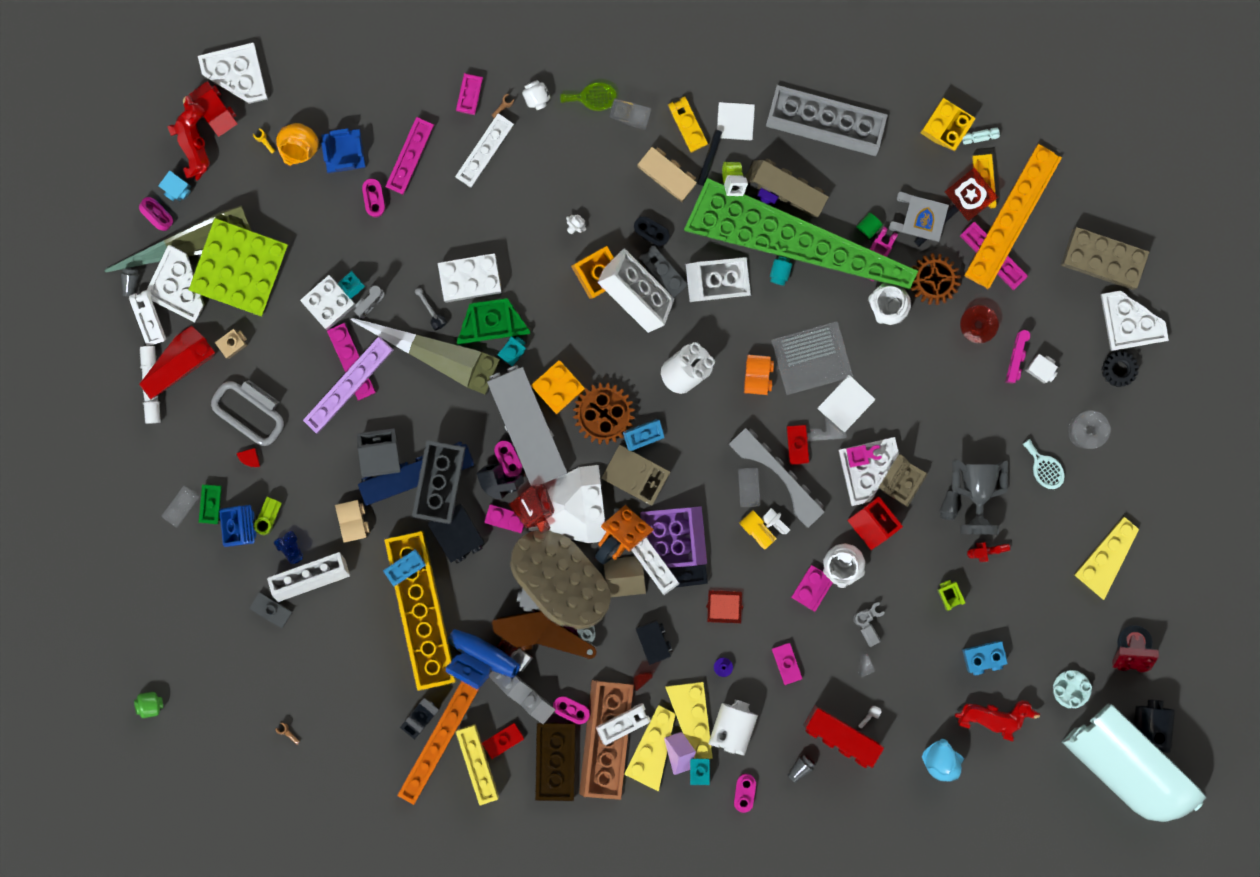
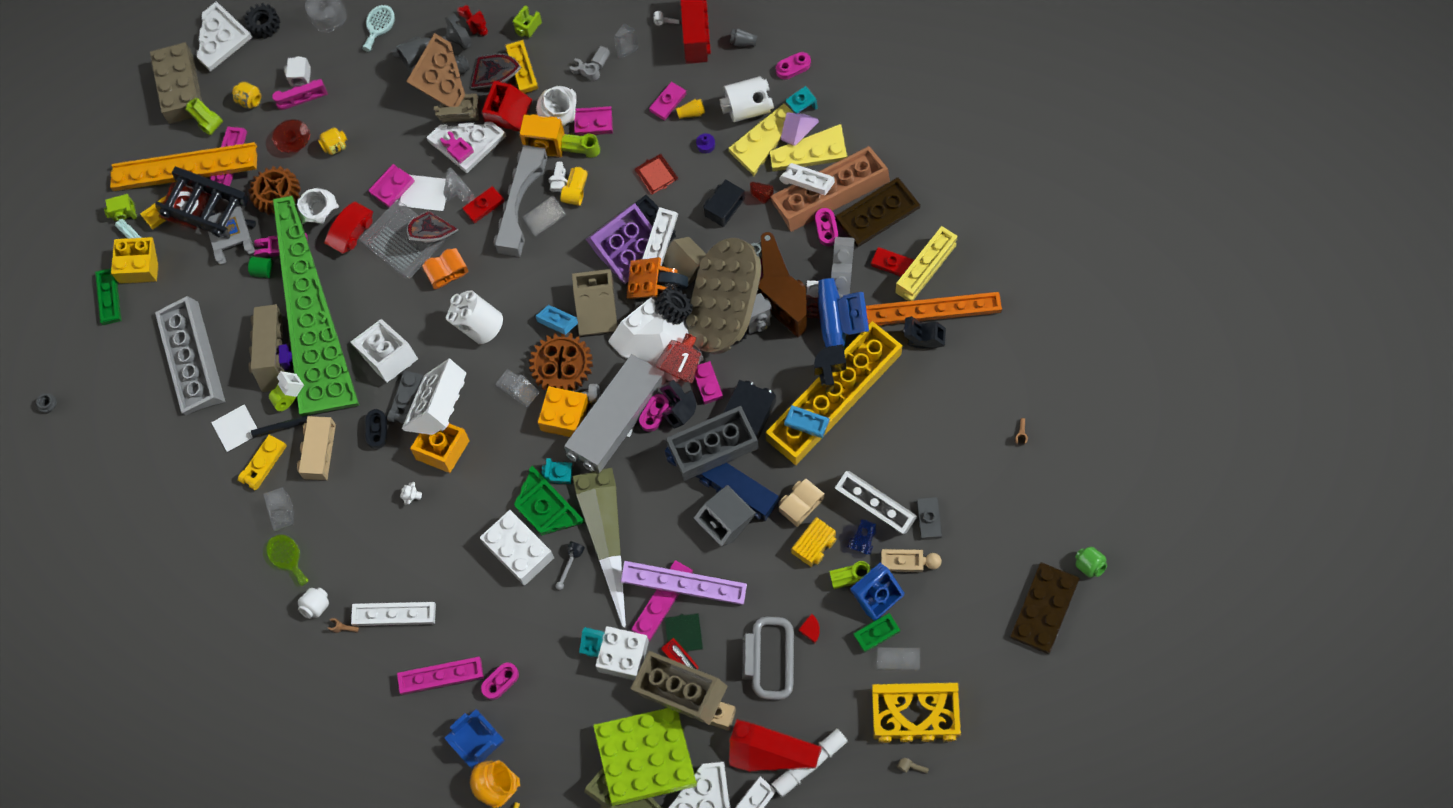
camera: 120 degrees left, 20 degrees down
(100, 454) = (905, 763): none -> dark tan hand
(131, 516) = (938, 691): none -> yellow fence
(140, 644) = (1044, 608): none -> dark brown plate
(248, 568) = (909, 560): none -> tan plate
(267, 325) = (679, 687): none -> dark tan brick
(297, 344) = (678, 654): none -> sticker
(312, 507) = (814, 542): none -> yellow brick
(314, 360) = (685, 631): none -> clear green piece
(365, 306) = (598, 614): light grey plate -> none
(442, 618) = (827, 361): none -> black brick
(469, 94) = (349, 662): dark pink plate -> none
(558, 422) = (593, 392): none -> light grey tile
(586, 527) = (673, 305): none -> black tyre
(609, 365) = (517, 387): none -> clear slope
(762, 677) = (691, 109): none -> yellow cone
(780, 271) = (344, 307): teal brick -> none
(796, 560) = (580, 144): none -> lime piece
(801, 384) = (429, 228): none -> shield
(822, 534) = (543, 133): none -> light orange brick
(851, 319) = (349, 227): none -> red brick
(871, 379) = (391, 185): none -> dark pink plate
(909, 562) = (525, 76): none -> yellow plate
(921, 535) = (493, 68): none -> shield
(932, 84) = (108, 297): none -> green tile
(939, 482) = (438, 73): none -> medium nougat plate
(948, 356) = (332, 141): none -> yellow head
(959, 228) = (202, 184): none -> black fence
(1009, 140) = (120, 208): none -> lime brick
(1049, 261) = (206, 119): none -> lime piece
(1049, 310) = (246, 95): none -> yellow head

